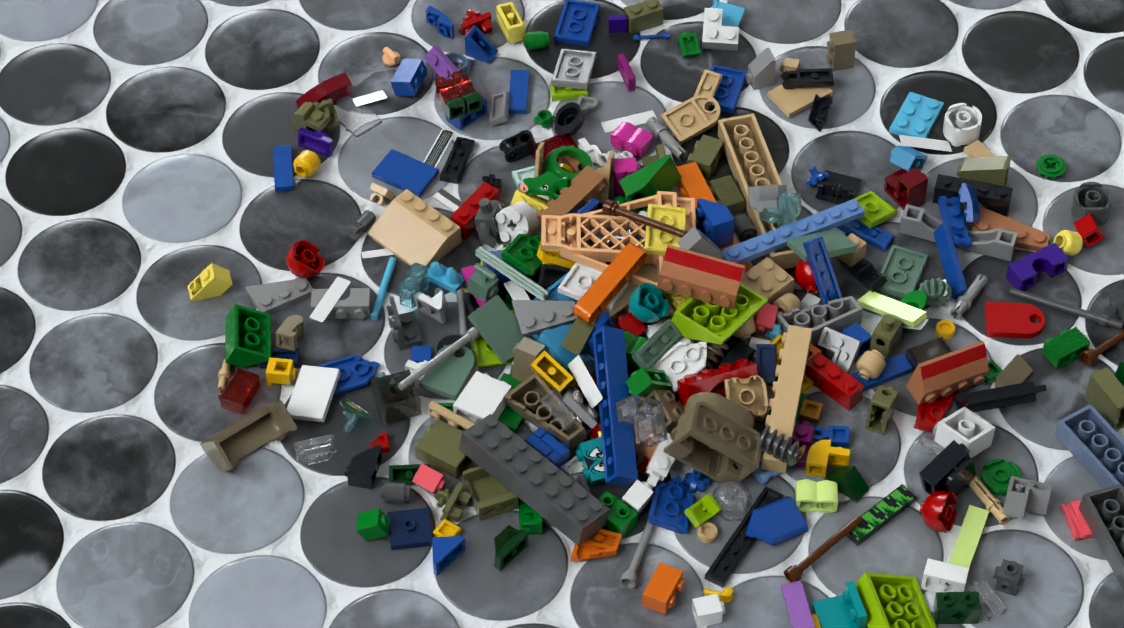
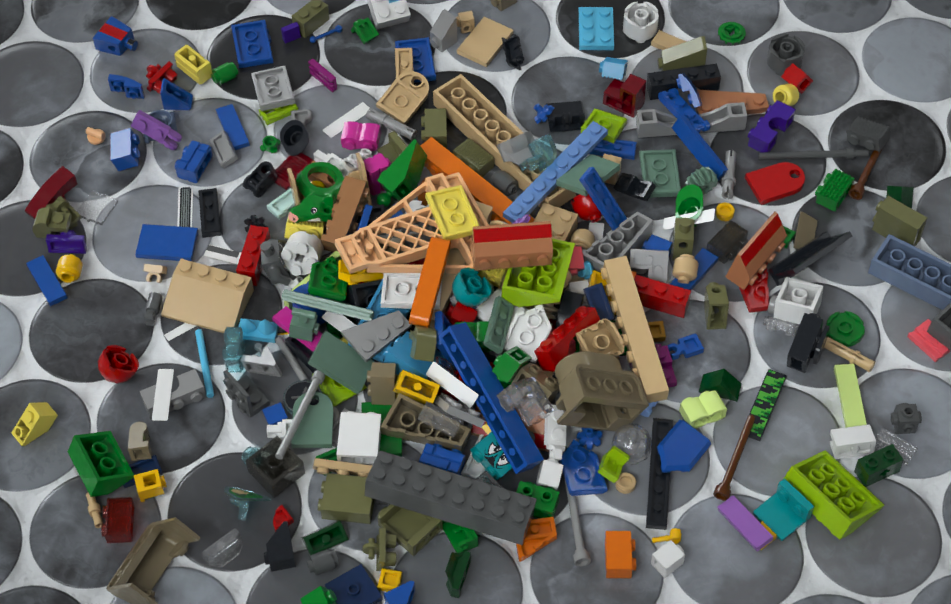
camera: 25 degrees left, 5 degrees up
(279, 295) = (107, 408): light grey wing -> none
(313, 393) = (192, 493): white tile -> none
(354, 372) = (213, 461): blue tile -> none
(369, 98) = (95, 182): white sticker -> none
(429, 479) = (349, 536): coral brick -> none
(457, 93) = (183, 150): hips -> none
(612, 208) = (395, 210): reddish brown piece -> none
(697, 242) = (493, 215): light grey brick -> none
(715, 222) = (486, 187): blue slope -> none
(780, 448) = (660, 378): dark grey piece -> none
(807, 78) = (487, 25): black hinge -> none
(823, 454) = (688, 370): yellow brick -> none
(884, 305) = (676, 209): yellowish green tile -> none
(925, 143) = (617, 49): white sticker -> none
(938, 511) = (814, 381): red cylinder -> none
(1026, 496) = (880, 339): light grey brick -> none

